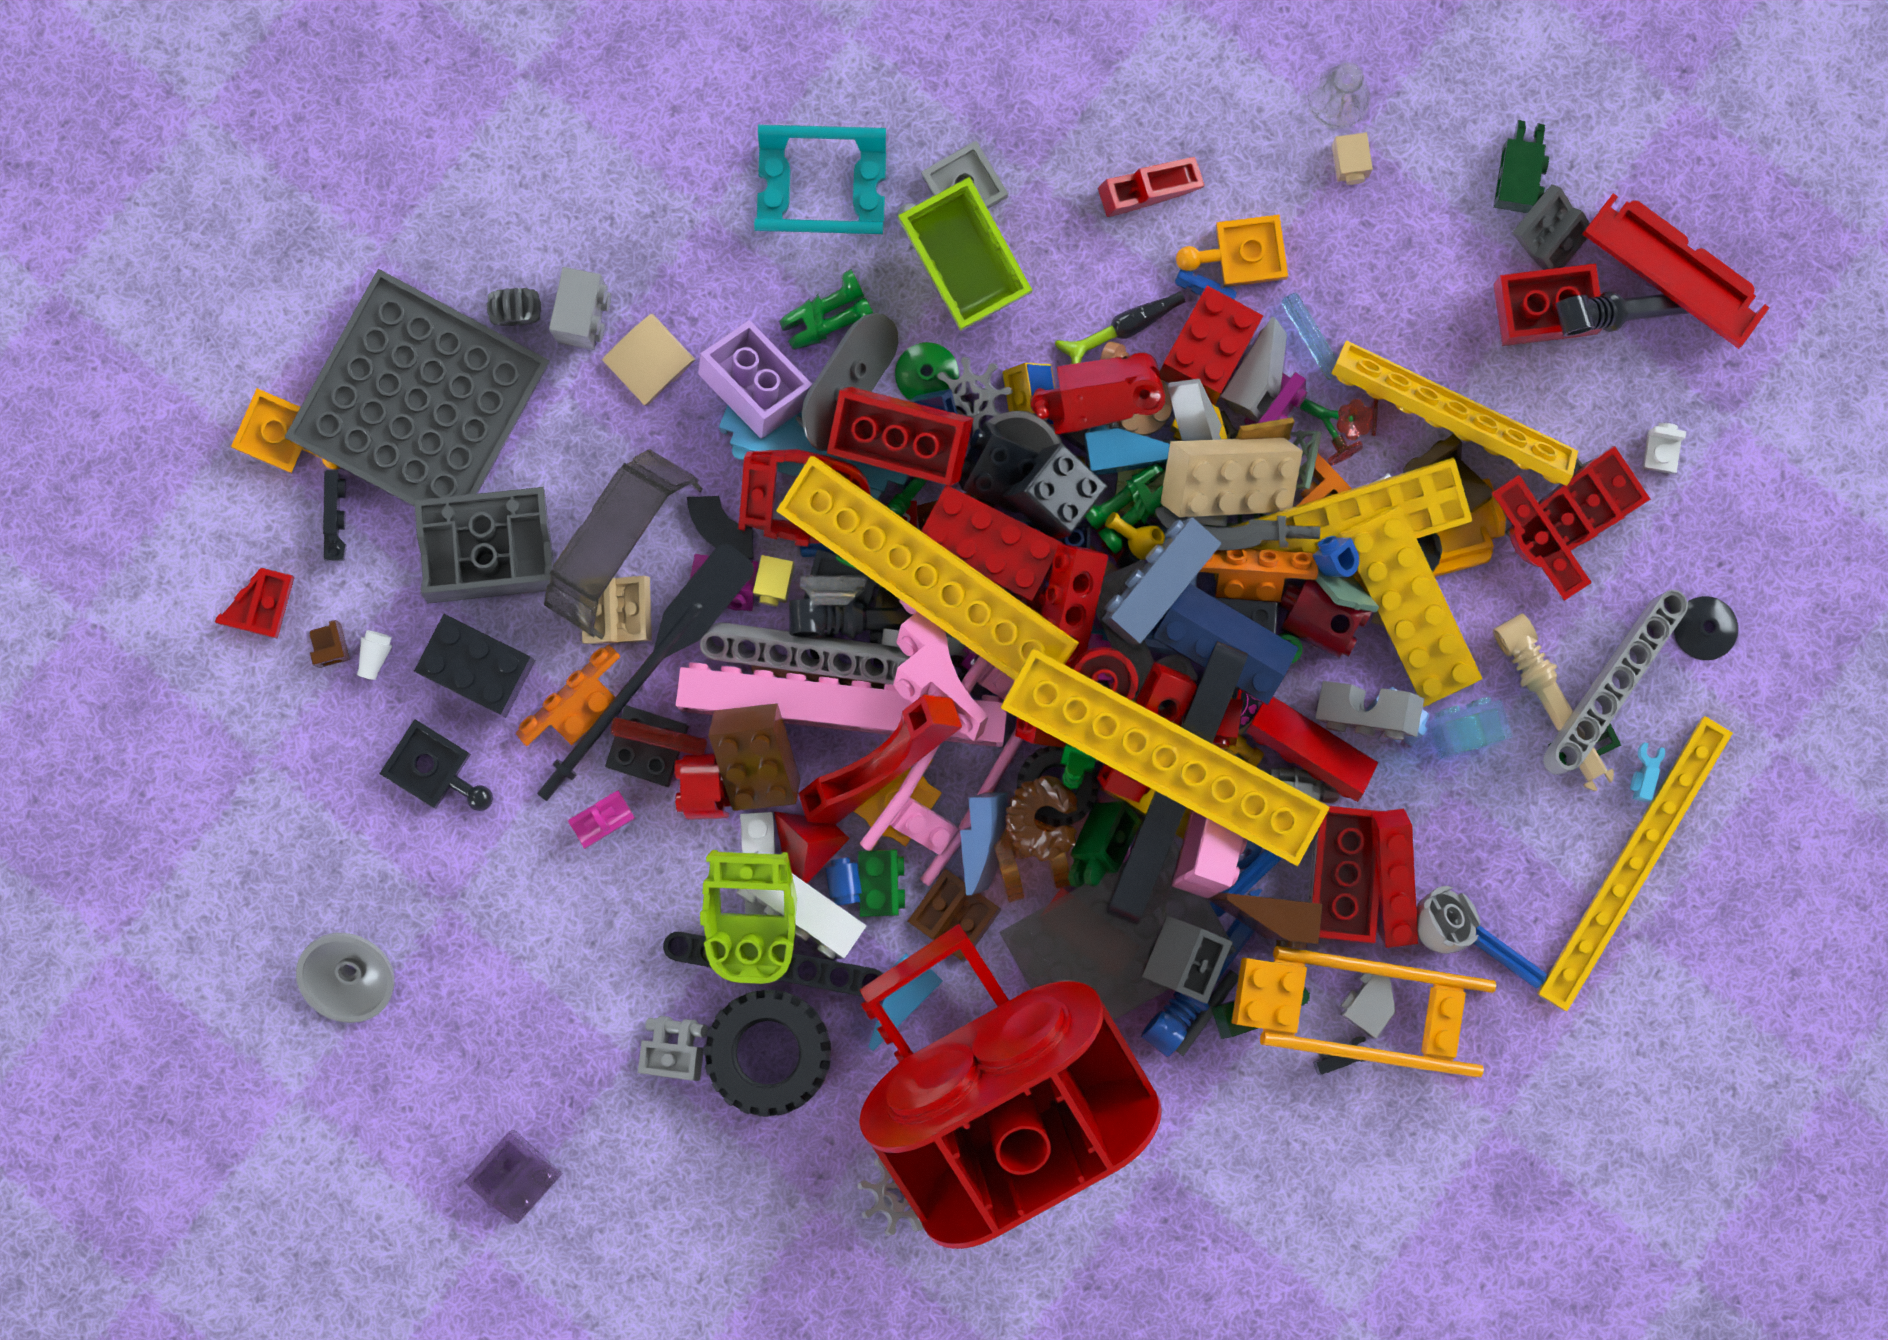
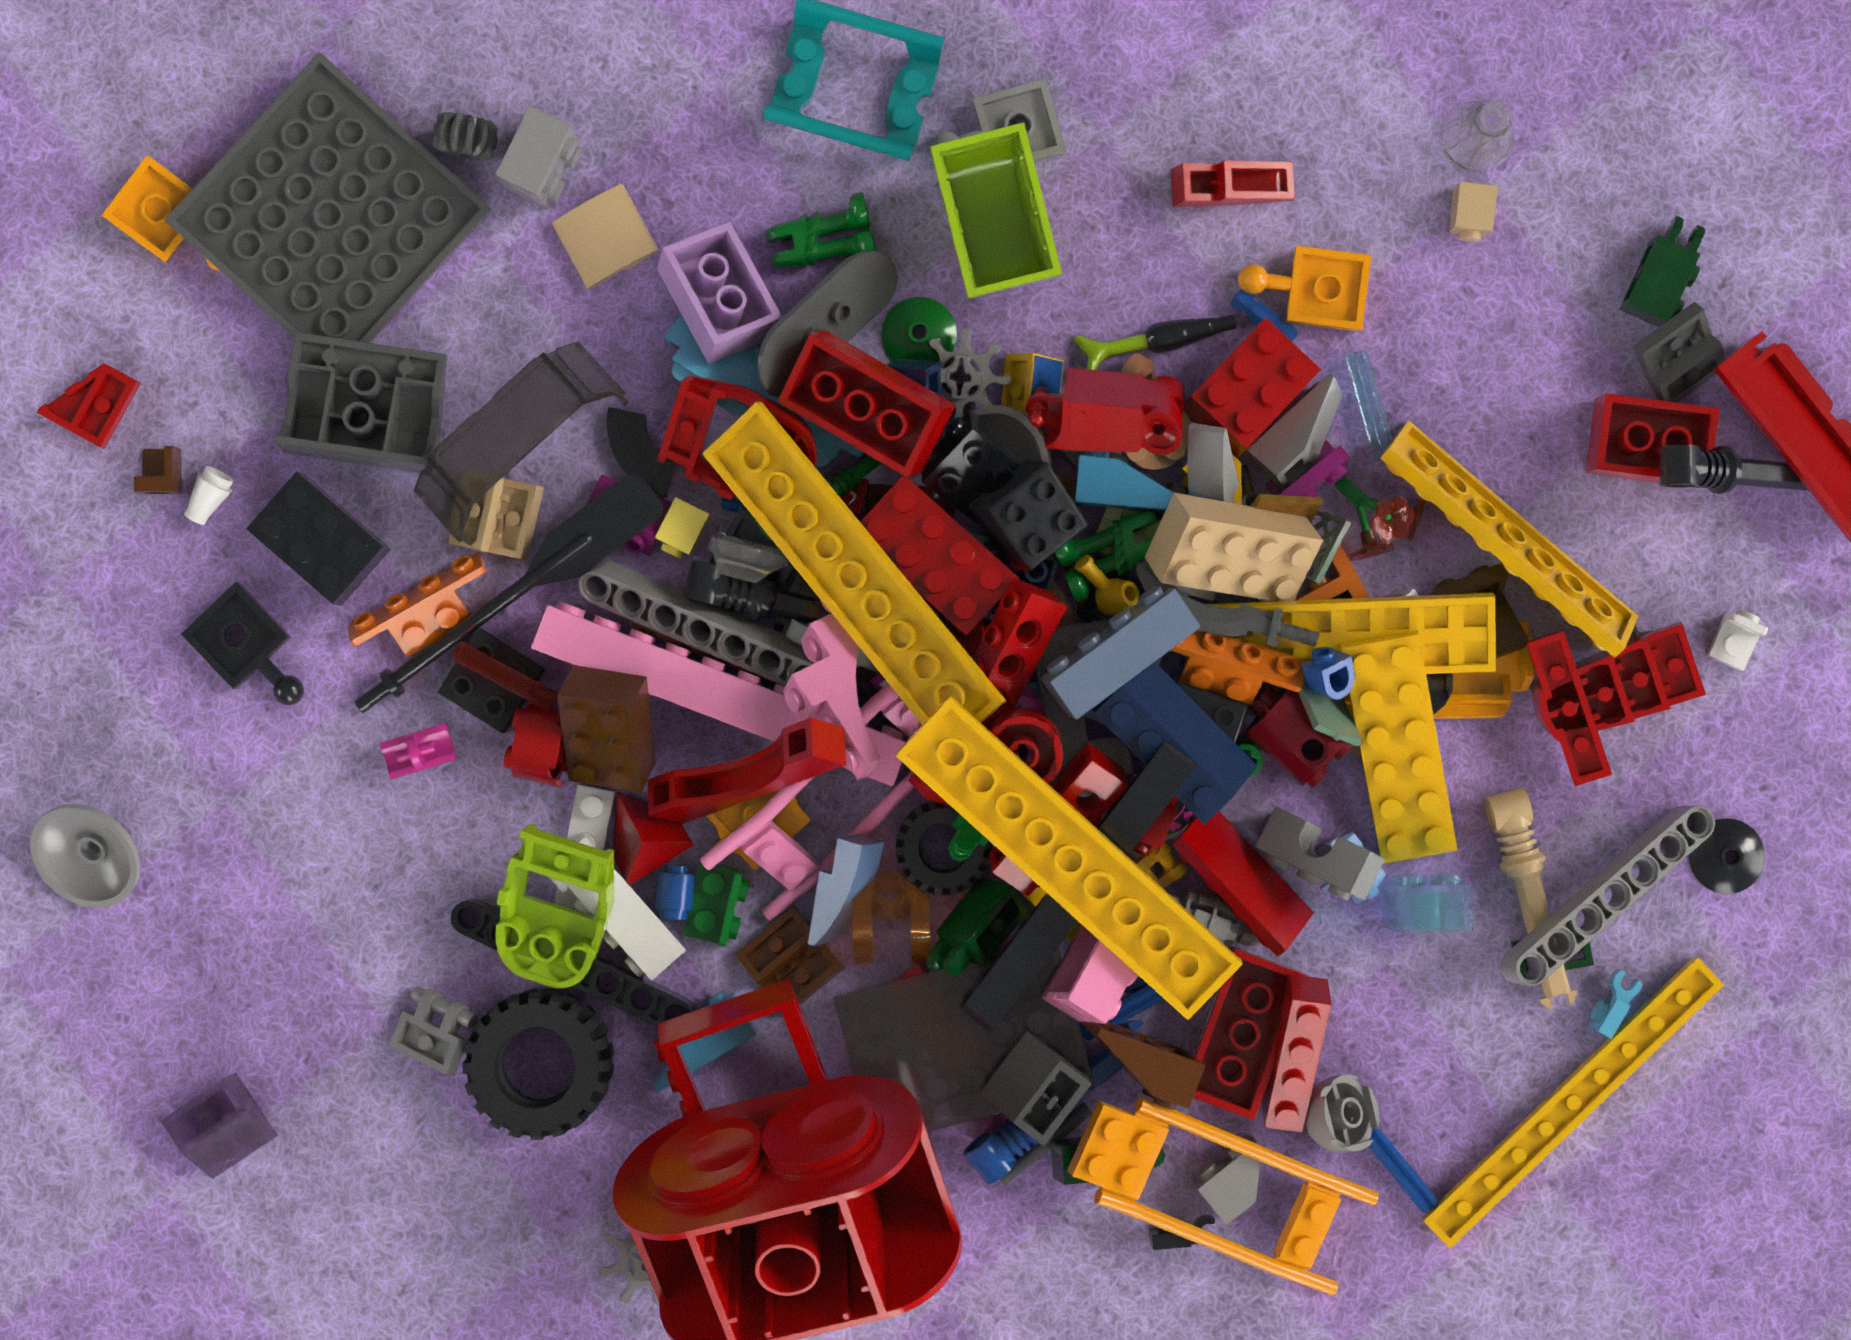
camera: 10 degrees right, 5 degrees up
(332, 516) = (199, 326): black hinge -> none
(1021, 814) = (890, 878): reddish brown piece -> none

